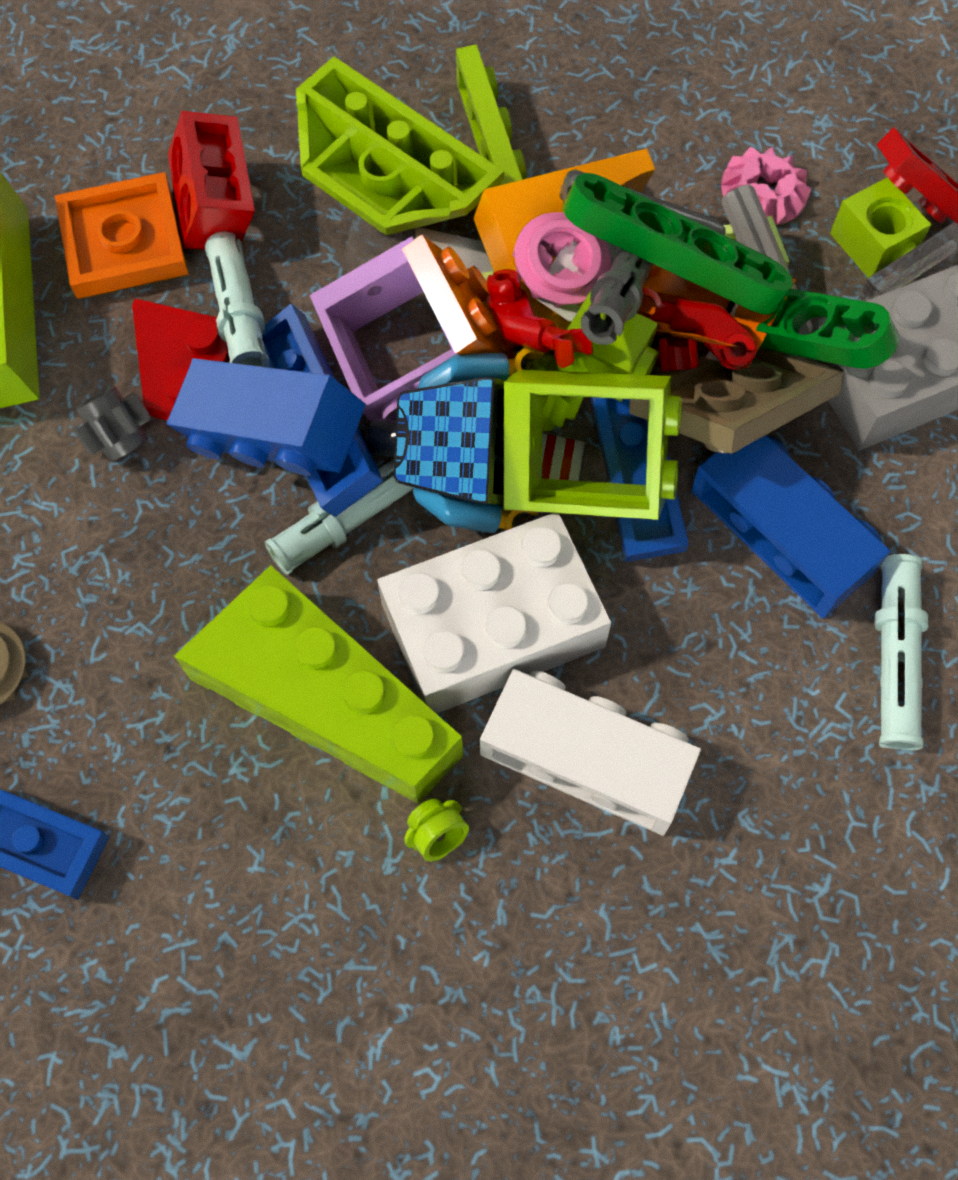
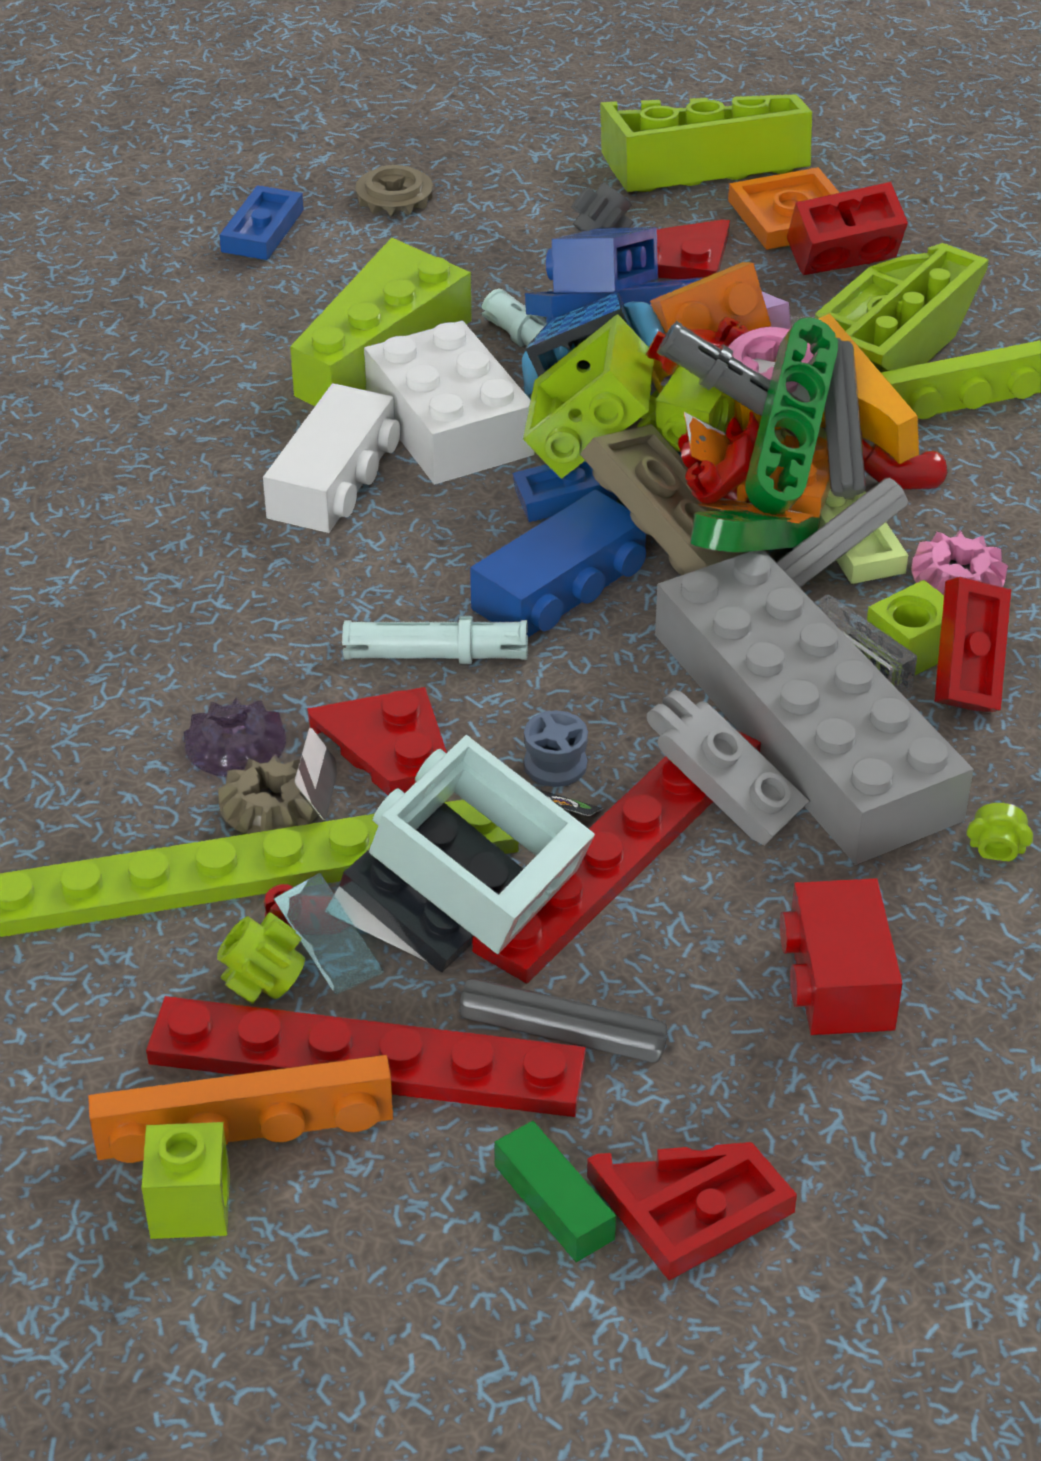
camera: 85 degrees right, 25 degrees down
(238, 318) = (709, 257): light aqua pin -> none
(430, 822) = (268, 388): lime plate -> none

